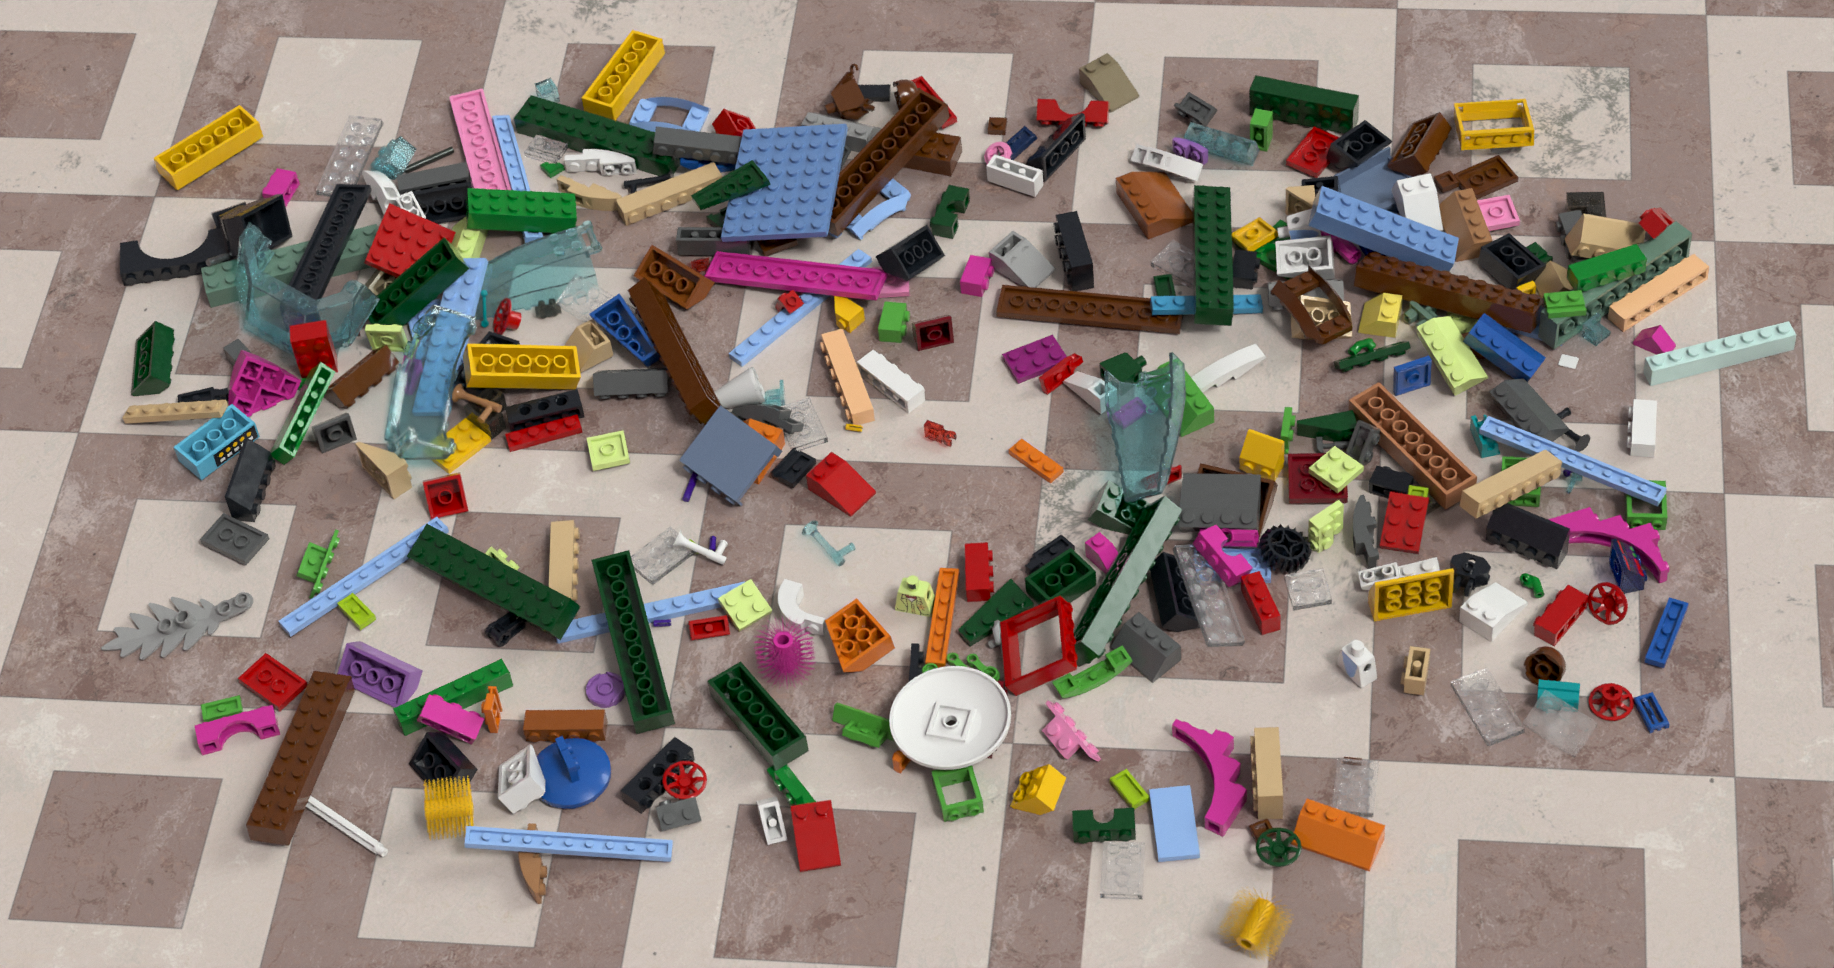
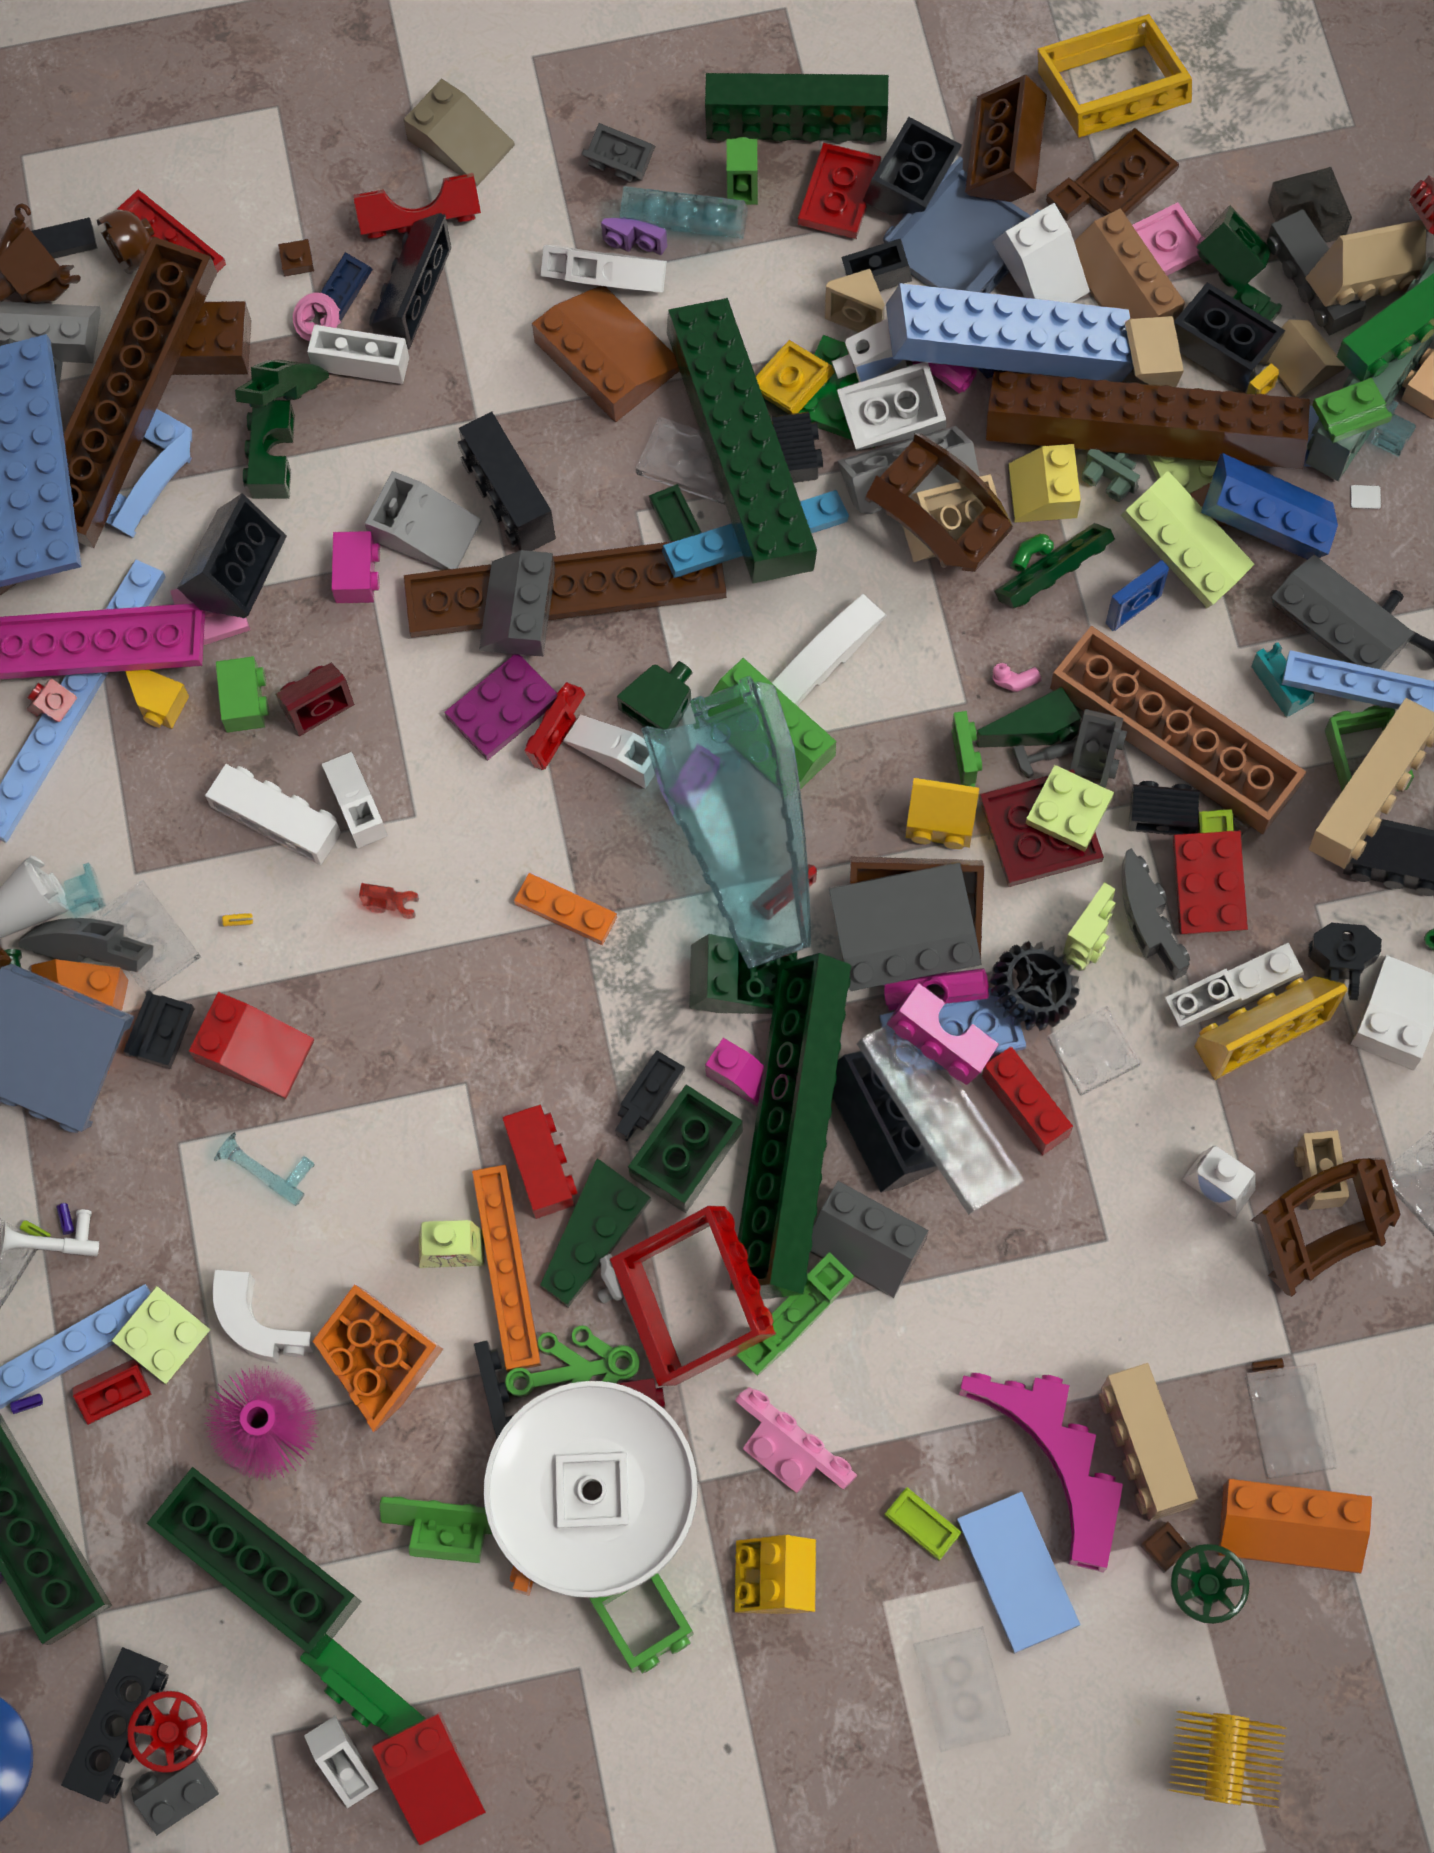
camera: 20 degrees left, 20 degrees up
(847, 377) = (196, 824): light nougat brick -> none
(937, 385) = (354, 800): none -> white slope
(967, 174) = (278, 379): none -> dark green slope
(1061, 308) = (518, 603): none -> dark grey slope
(1120, 828) = (937, 1609): dark green arch -> none
(1329, 407) = (1012, 681): none -> bright pink arm
(1381, 698) = (1289, 1255): none -> reddish brown wedge
(1465, 258) = (1155, 350): none -> tan slope
(1532, 221) = (1233, 249): none -> dark green slope

